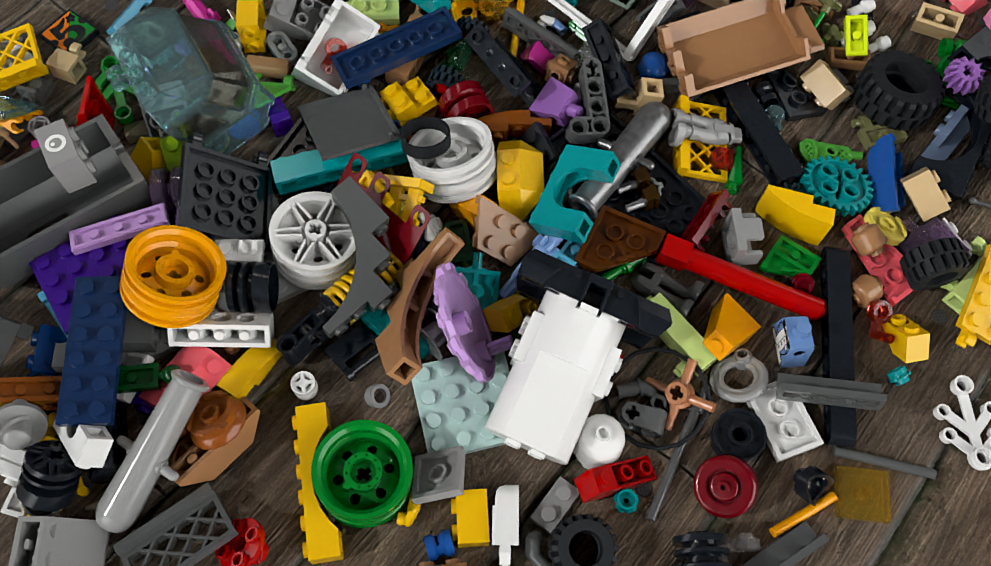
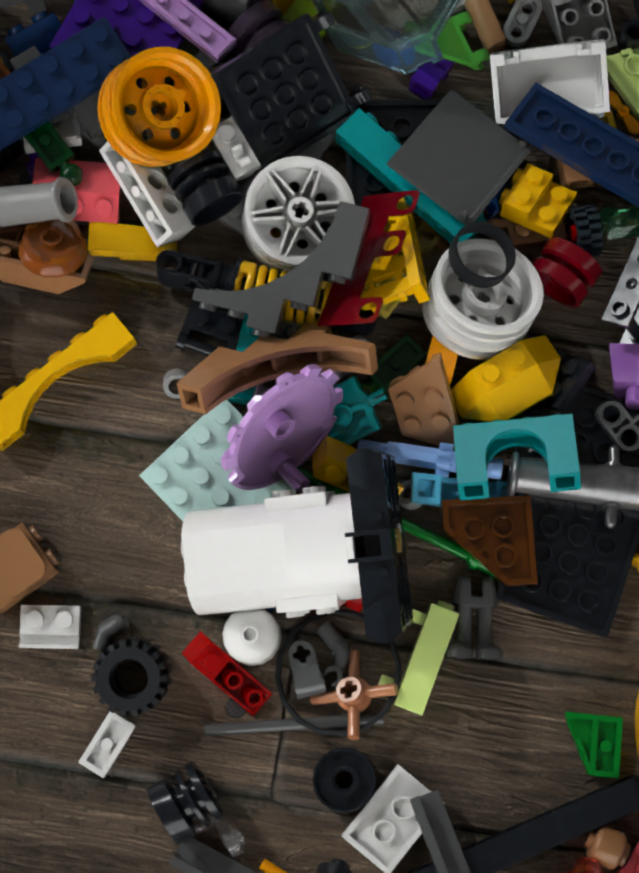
camera: 60 degrees right, 15 degrees up
(300, 382) = (140, 300): white wheel -> none
(325, 65) = (543, 79): clear red plate -> none
(356, 439) = (76, 380): green wheel -> none
(408, 518) = (82, 488): yellow arm -> none
(433, 227) = (393, 325): white plate -> none
(438, 475) = (125, 494): light grey plate -> none
(439, 545) = (60, 534): blue wheel -> none
(472, 518) = (103, 550): yellow brick -> none
(505, 521) = (117, 585): white piece -> none
(512, 124) = (568, 321): dark orange slope -> none
(555, 505) = (165, 626): light grey plate -> none
(632, 498) = (206, 703): teal plate -> none
(641, 182) = (573, 542): dark brown piece -> none
(681, 255) = (532, 696): red brick -> none
(706, 218) = (582, 620): dark red plate -> none
(725, 486) = (278, 790): dark red wheel -> none
(728, 328) = (461, 710): light orange slope -> none
(736, 237) = (584, 673): light grey panel -> none
(756, 388) = (419, 726): light grey piece -> none
(791, 337) = (490, 789): medium blue torso -> none
(803, 282) = (572, 770): dark red plate -> none

